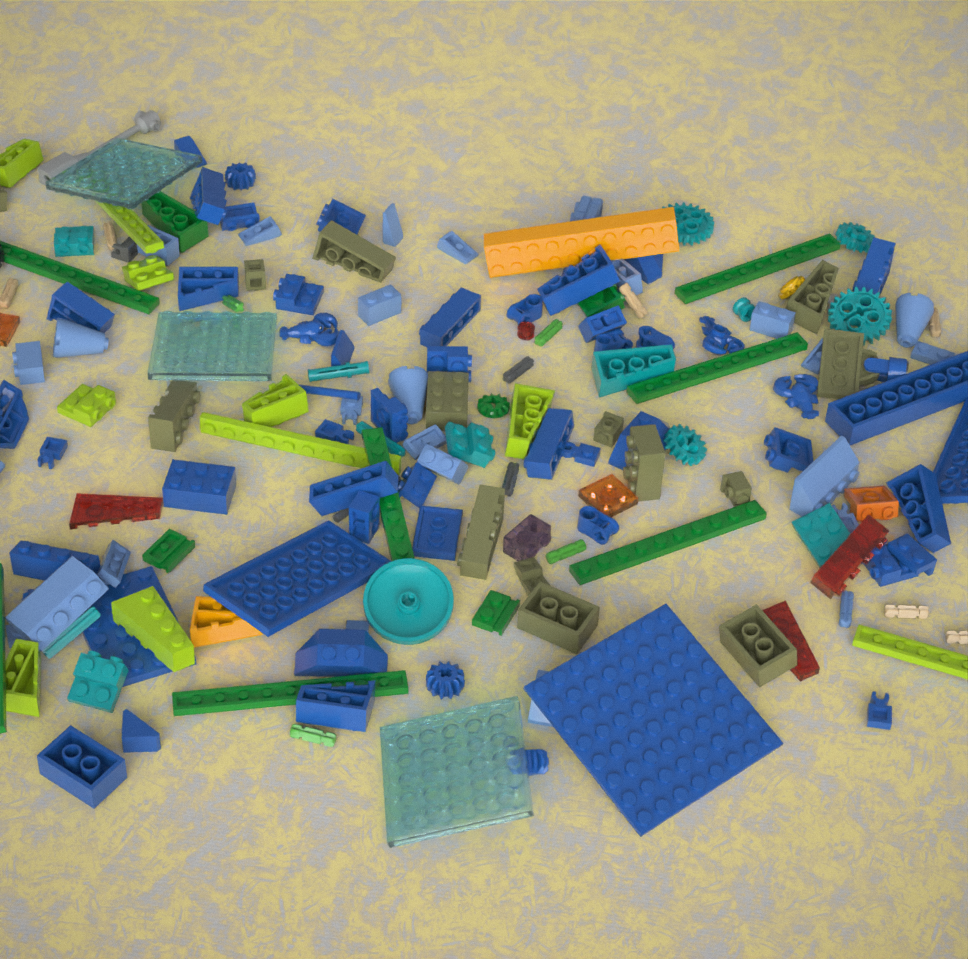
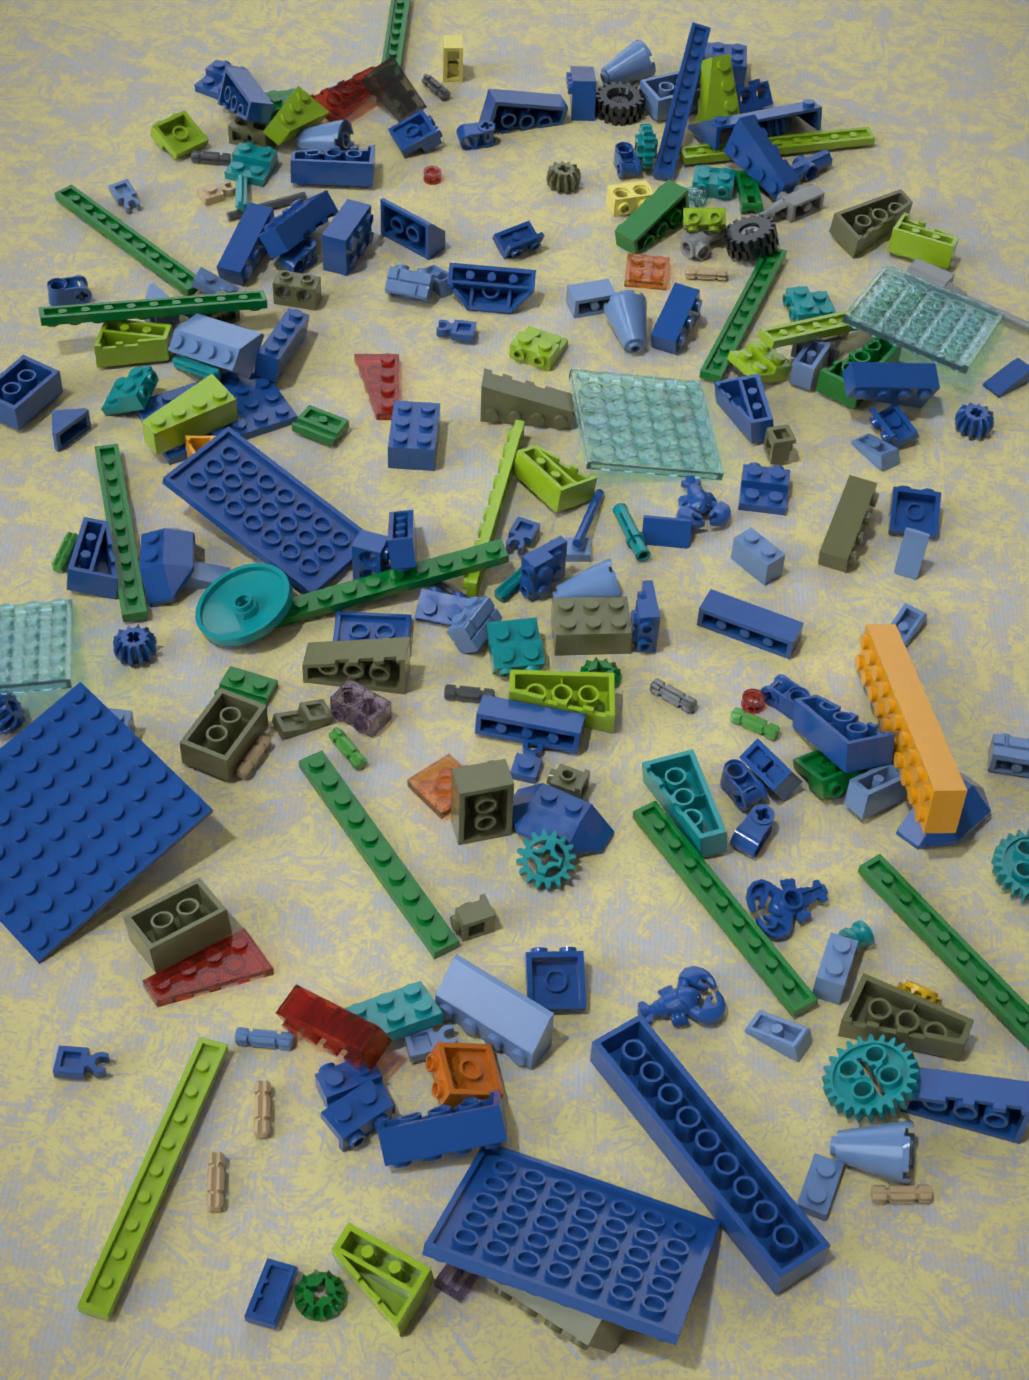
camera: 85 degrees right, 5 degrees up
(113, 564) = (286, 382): medium blue plate -> none
(233, 303) = (726, 433): bright green axle -> none
(432, 436) = (514, 607): medium blue plate -> none
(595, 524) = (390, 772): blue piece -> none
(633, 300) = (831, 802): tan axle -> none
(848, 365) = (748, 1060): olive plate -> none

